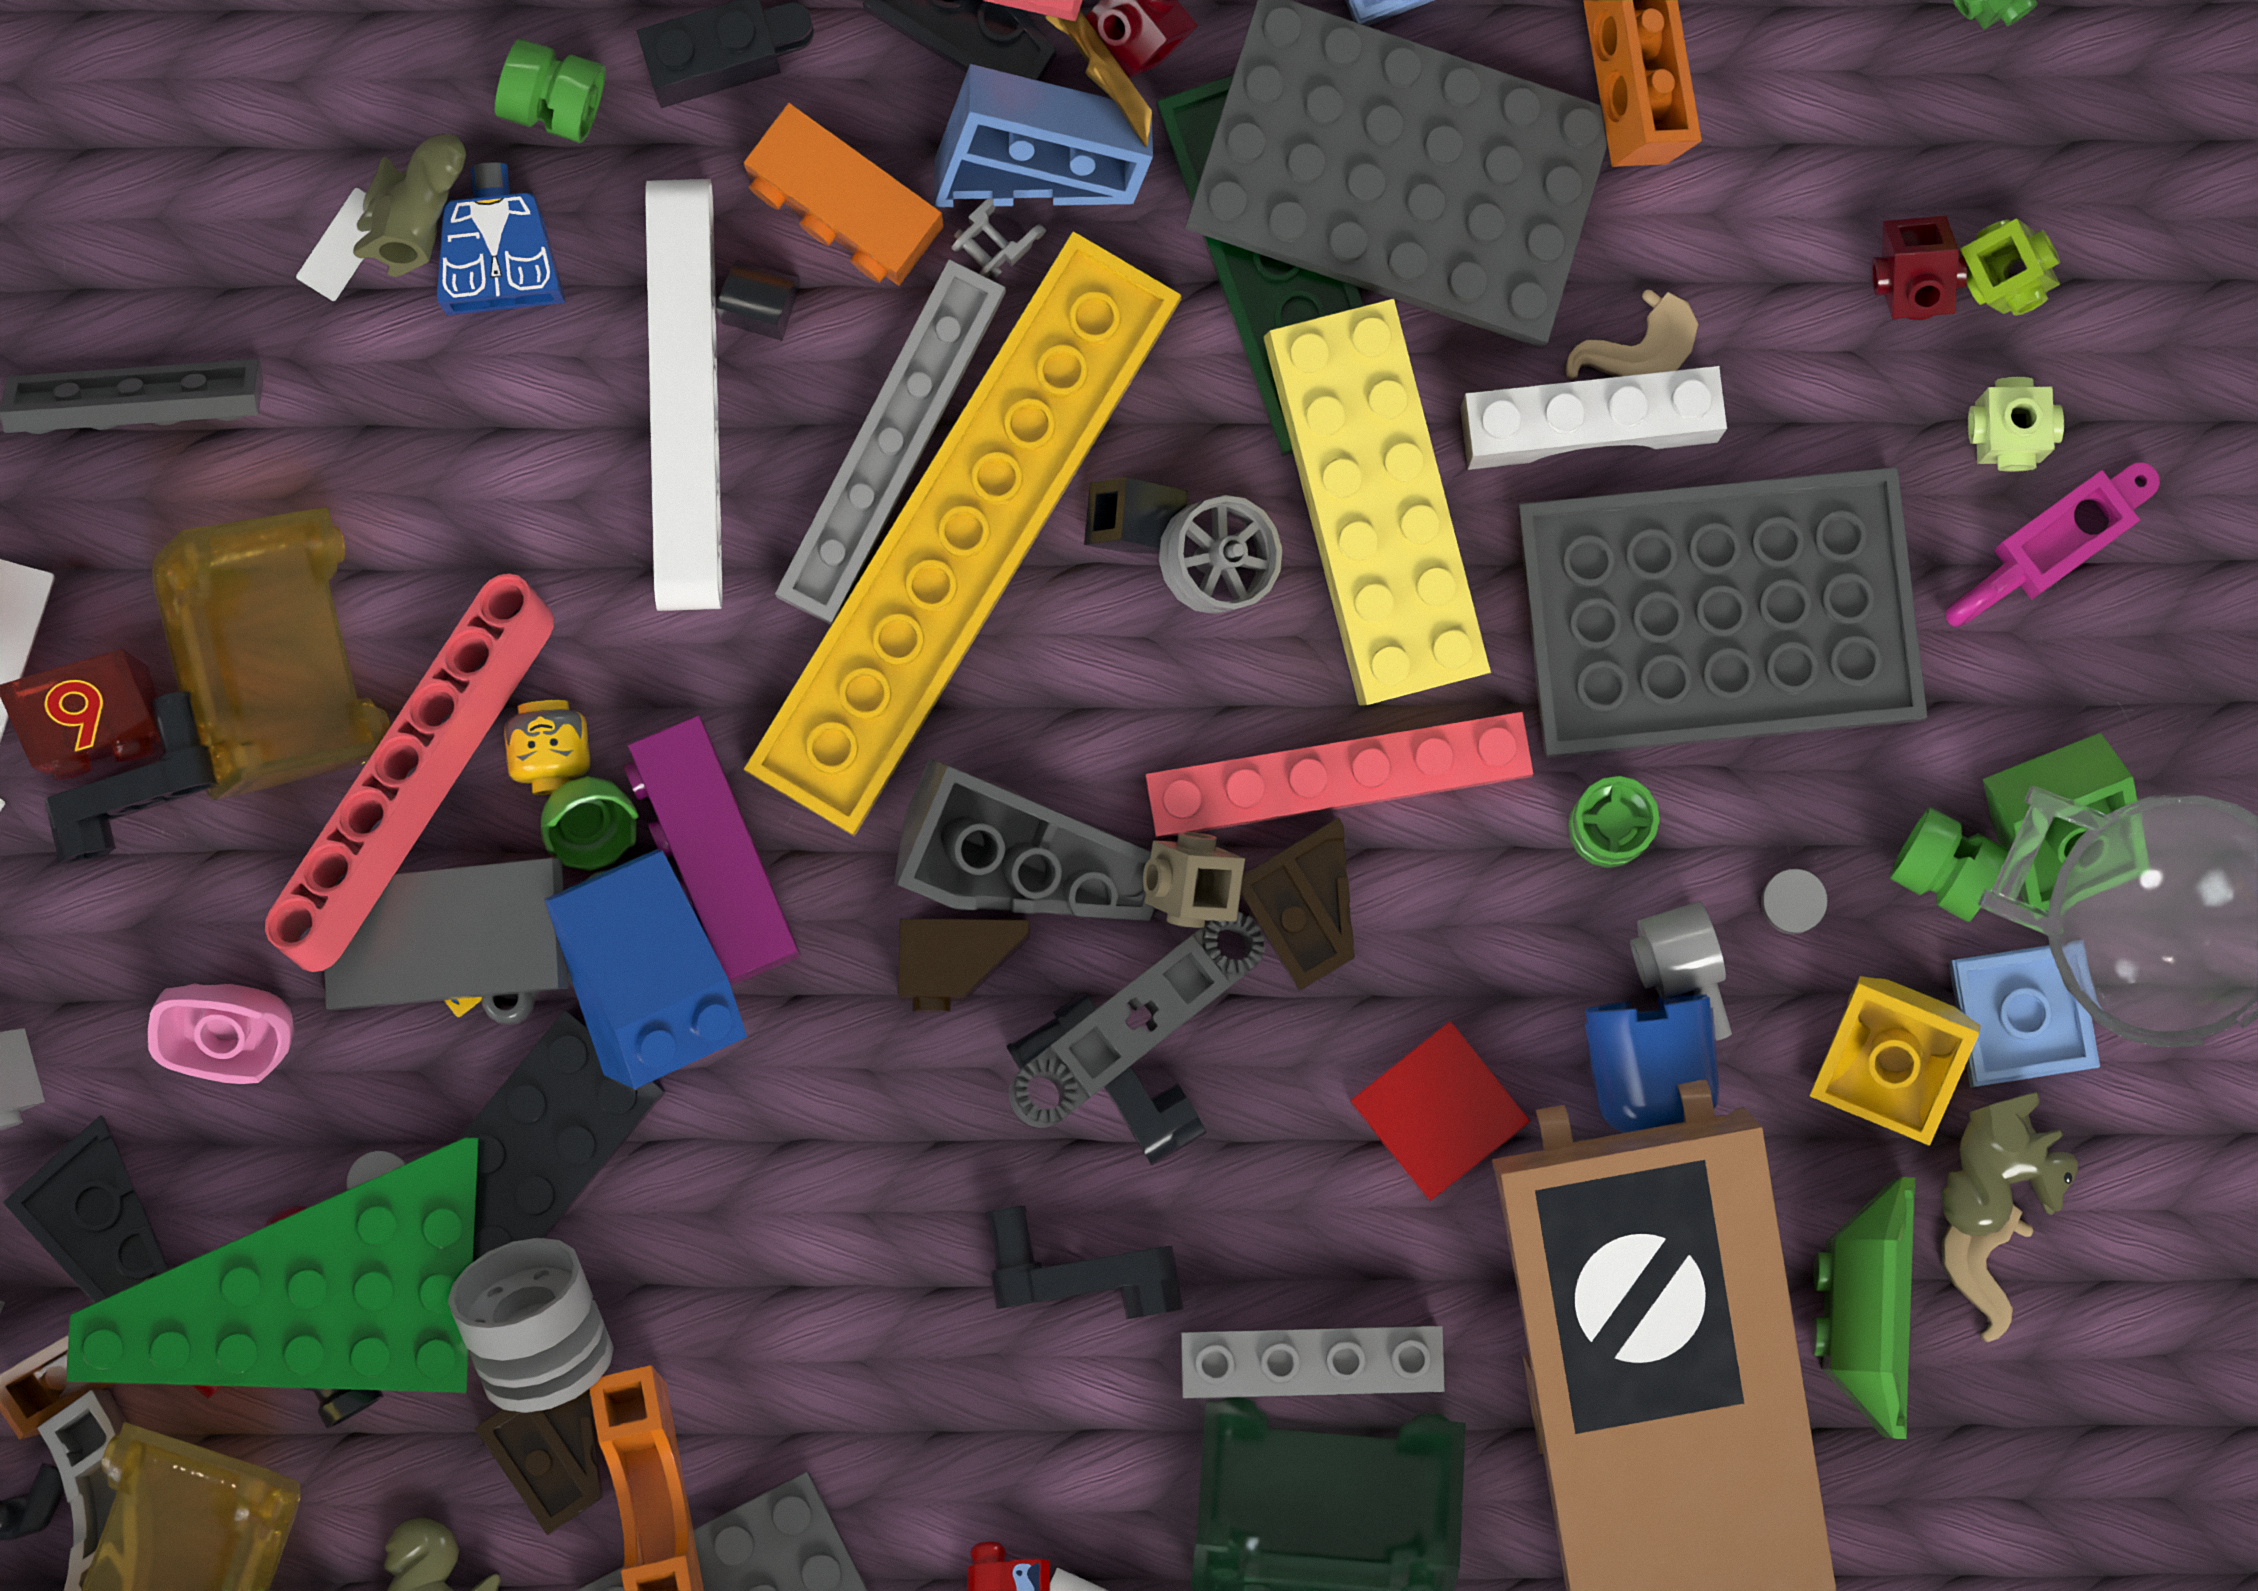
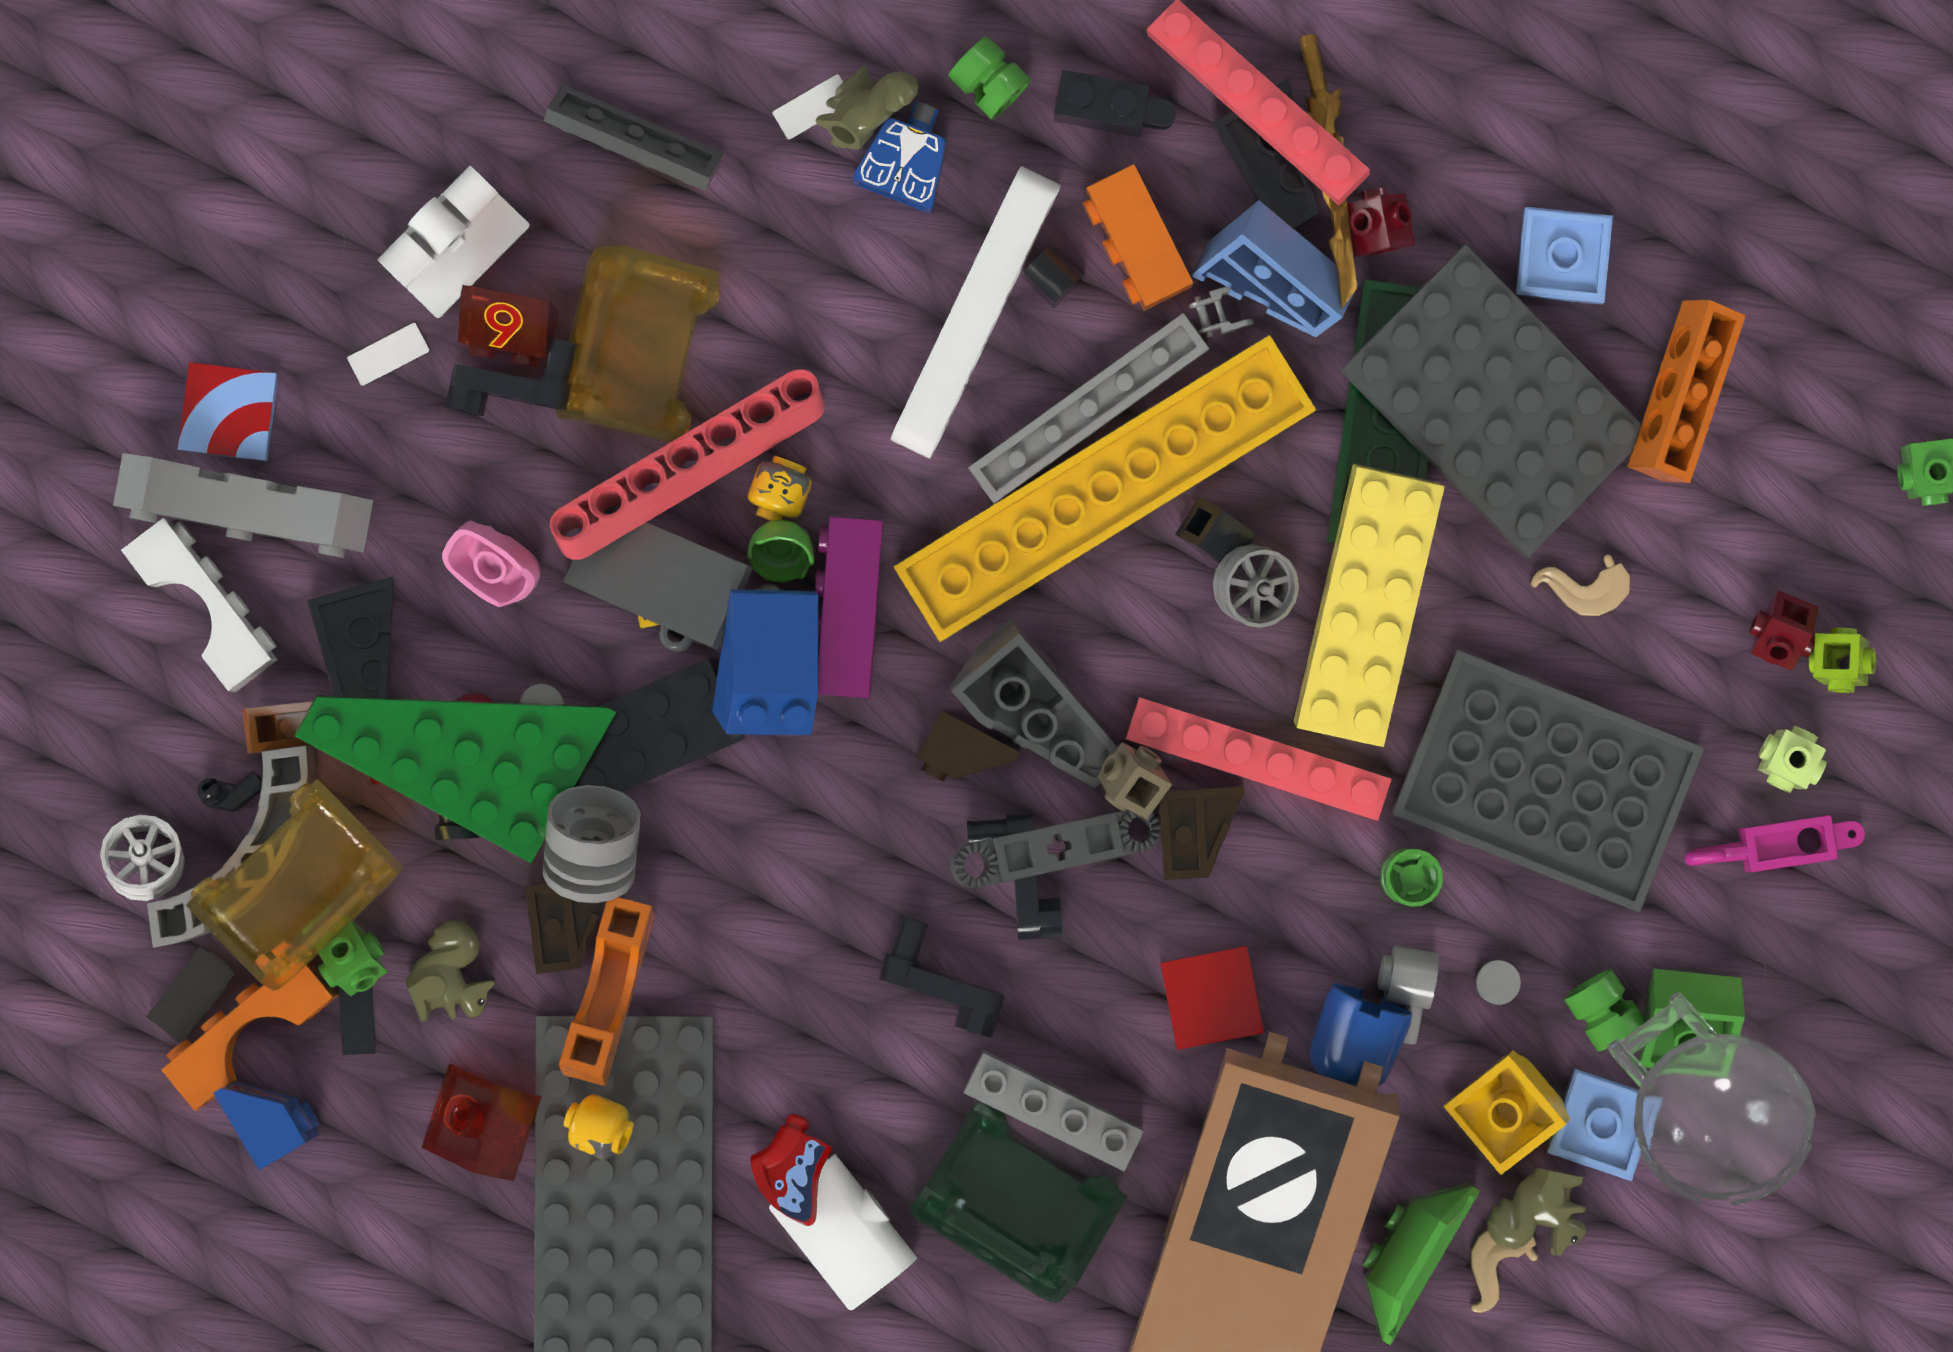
camera: 30 degrees right, 5 degrees up
(1564, 417) = (1532, 618): white arch -> none

